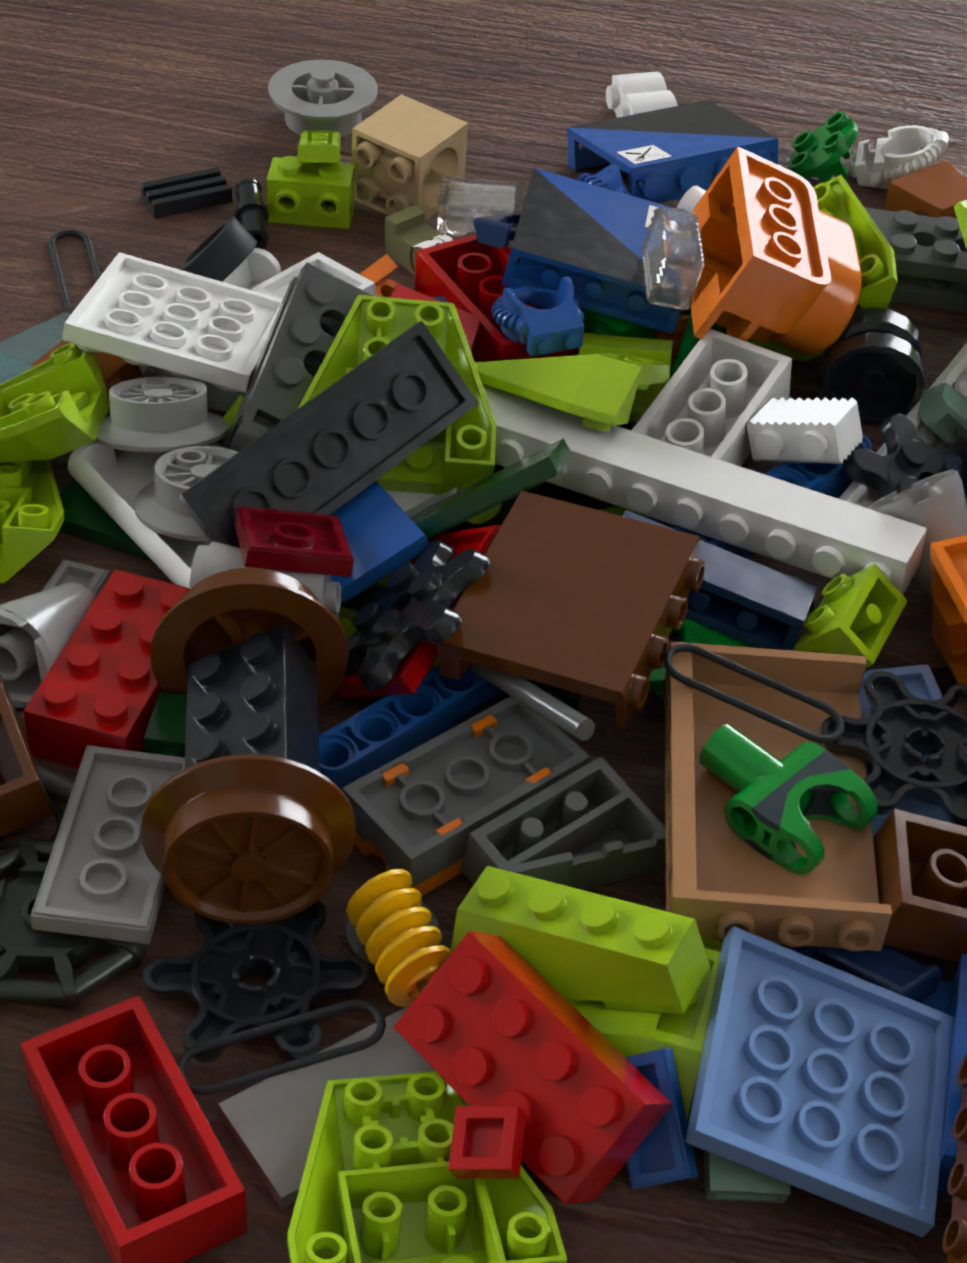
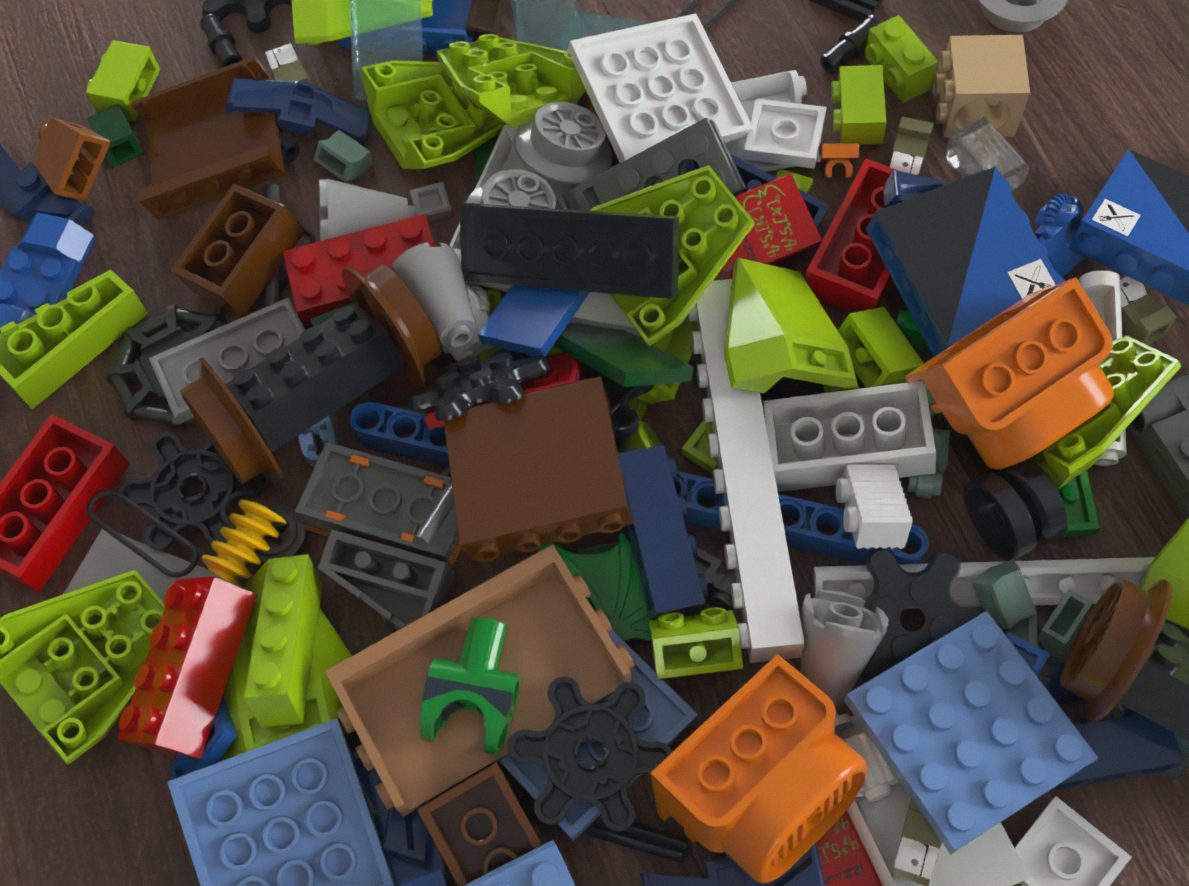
camera: 65 degrees right, 20 degrees up
(220, 251) = (767, 60): black tyre -> none
(293, 541) = (474, 285): dark red tile -> none
(319, 146) = (934, 31): lime tile -> none
(336, 232) = (860, 104): none -> lime brick
(487, 1142) = (112, 676): red plate -> none
(543, 330) = (838, 291): blue piece -> none
(672, 258) = (959, 312): clear brick -> none
(747, 707) = (527, 625): black piece -> none

